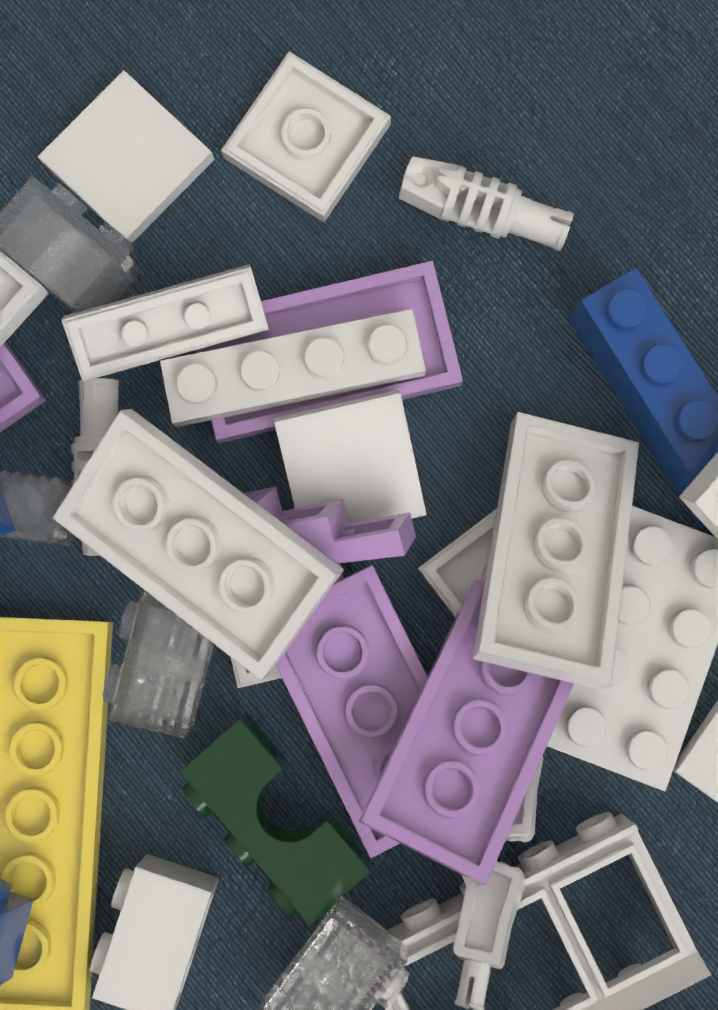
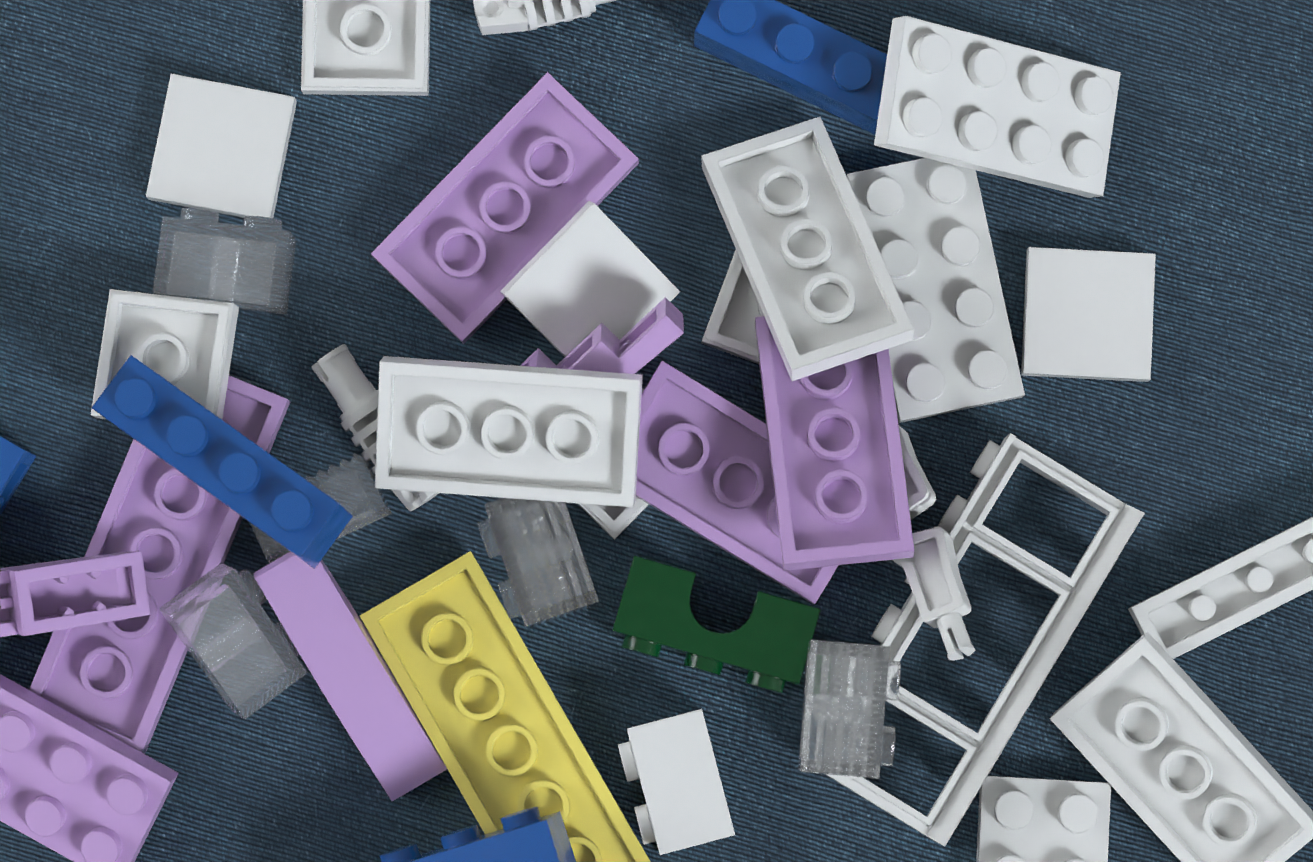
camera: 35 degrees left, 0 degrees up
(165, 323) = (359, 268): white tile -> none
(293, 368) = (489, 238): white plate -> none

